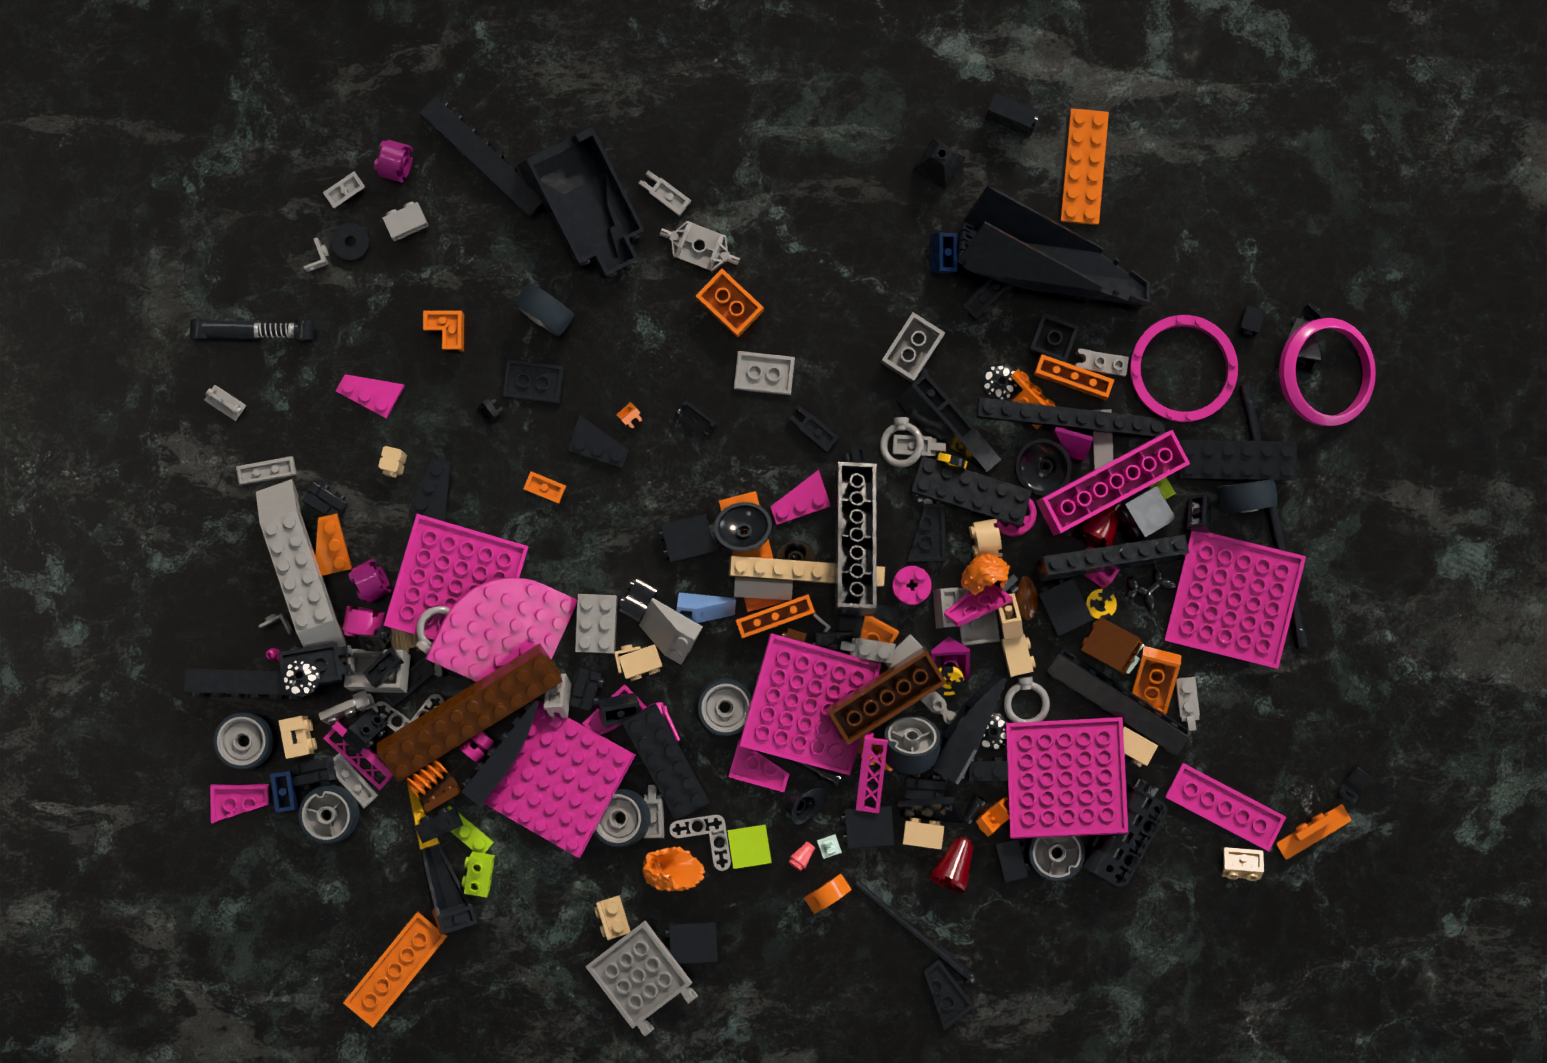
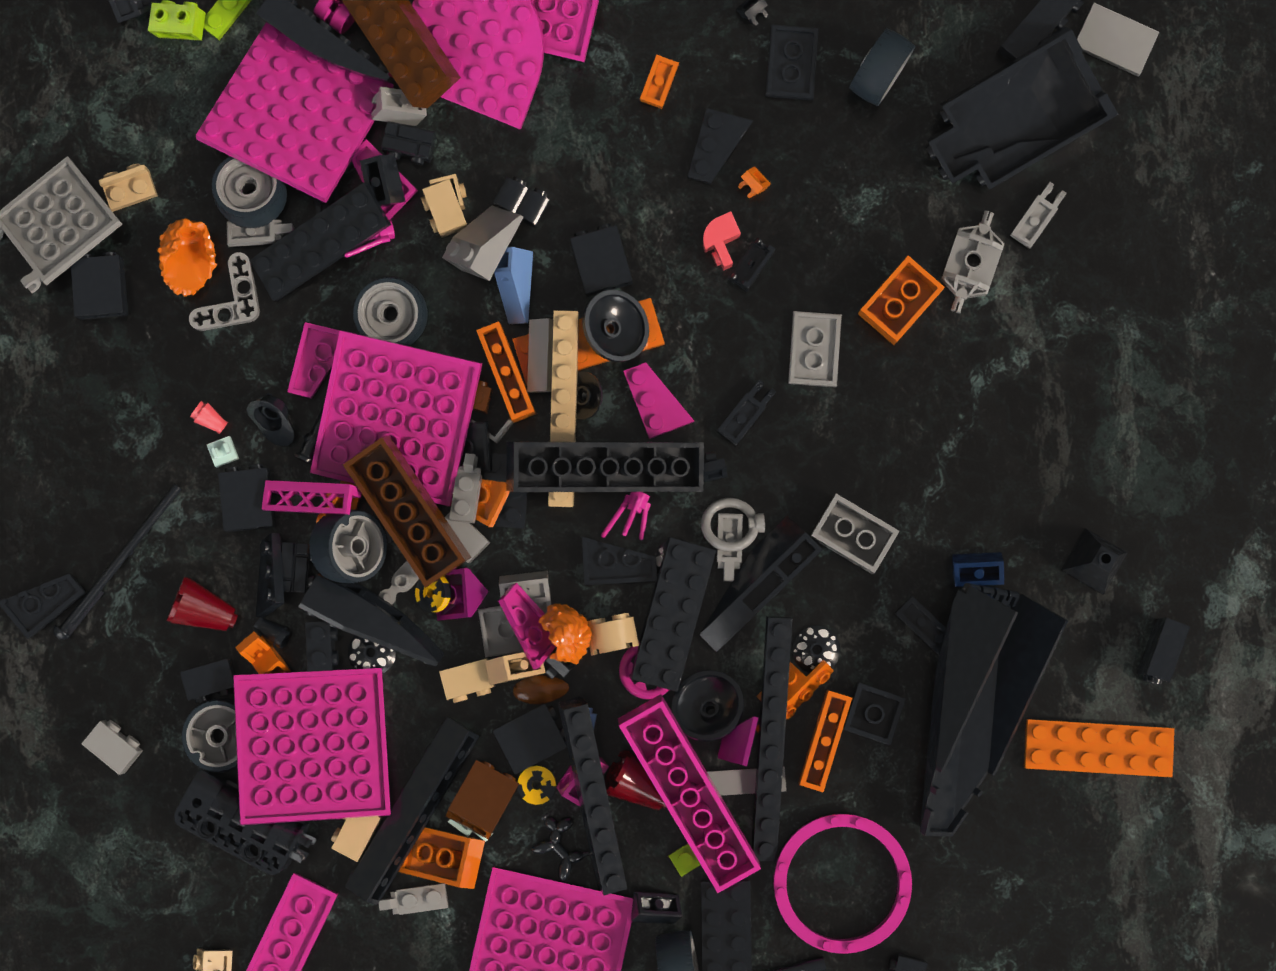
camera: 90 degrees right, 0 degrees up
(526, 125) = (1116, 39): none -> light grey tile
(596, 623) = (490, 151): light grey brick -> none
(670, 446) = (717, 234): none -> coral brick
(749, 846) = (220, 352): lime tile -> none
(827, 894) = (162, 451): orange brick -> none
(883, 516) = (636, 503): none -> dark pink plant
(903, 578) = (540, 533): dark pink brick -> none
(923, 834) = (240, 567): tan brick -> none
(952, 460) = (711, 588): piece -> none
(1026, 683) = (432, 690): light grey piece -> none
(1062, 938) = (112, 746): none -> light grey brick
(1102, 362) = (845, 778): light grey plate -> none
(1145, 514) = (651, 838): brick -> none

